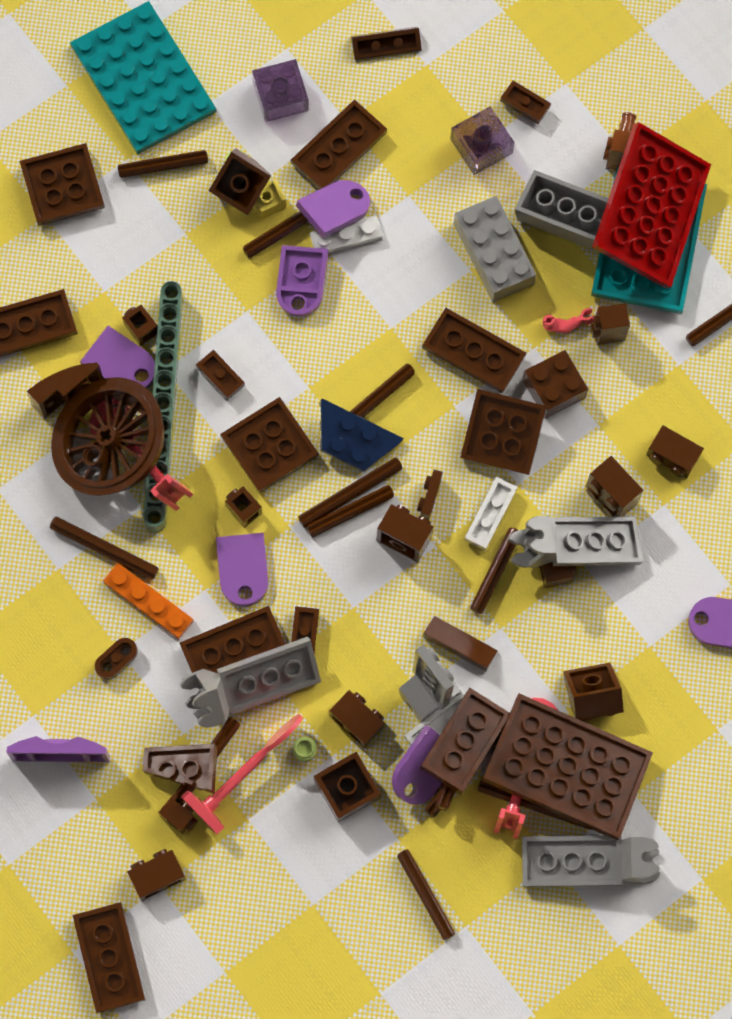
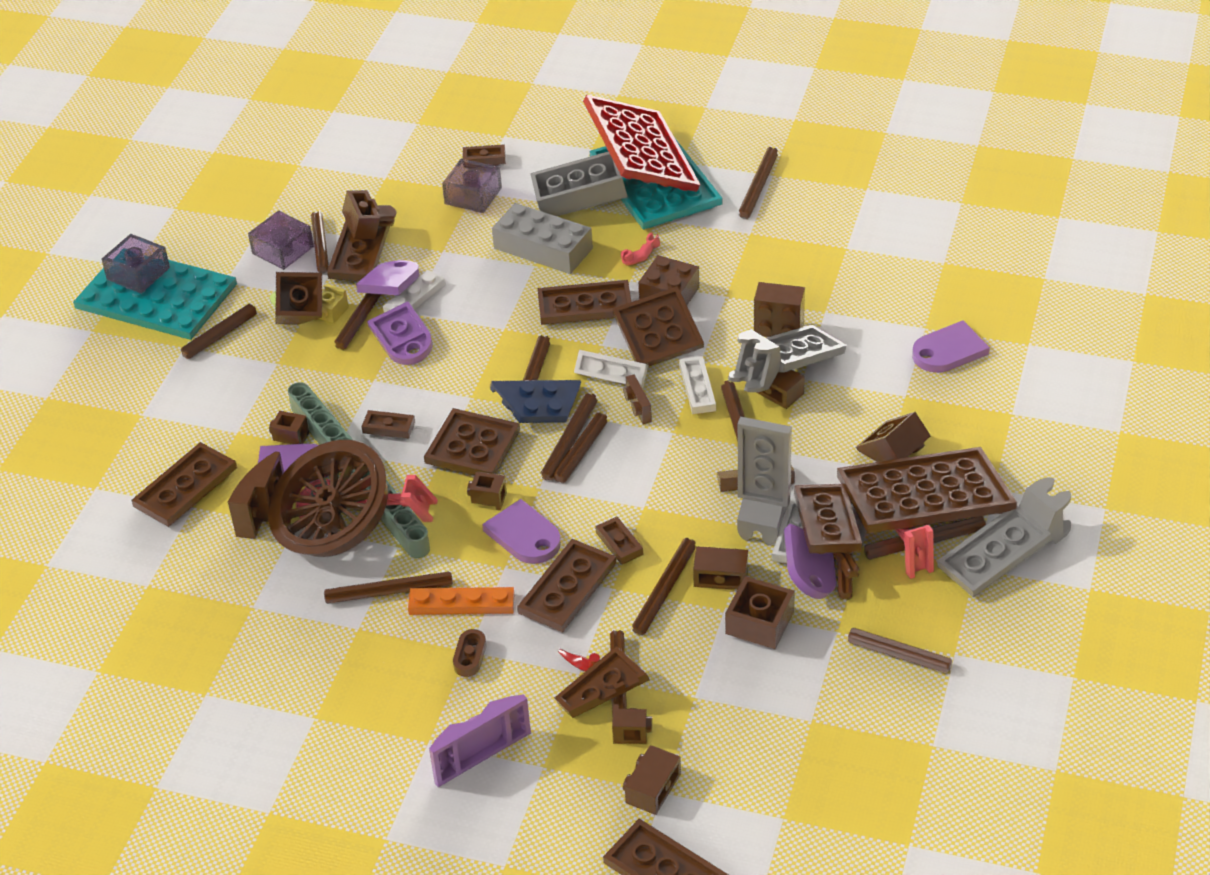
camera: 30 degrees left, 30 degrees down
(62, 184) = (140, 384): reddish brown plate -> none
(136, 45) = (135, 263): none -> brick
(191, 726) = (579, 661): none -> red bar
(205, 808) = (657, 706): coral piece -> none
(252, 681) = (606, 589): light grey hinge -> none
(304, 701) = (663, 586): none -> reddish brown axle
(304, 748) = (696, 615): yellowish green plate -> none
(314, 111) = (319, 242): none -> reddish brown axle
(361, 121) = (365, 215): none -> reddish brown brick
(386, 43) = (341, 179): reddish brown slope -> none
(405, 532) = (642, 426): reddish brown brick -> none
(435, 445) = (609, 367): none -> white plate
(610, 324) = (677, 226): reddish brown brick -> none
(617, 144) = (583, 133): dark orange brick -> none
(674, 452) = (802, 271): reddish brown brick -> none

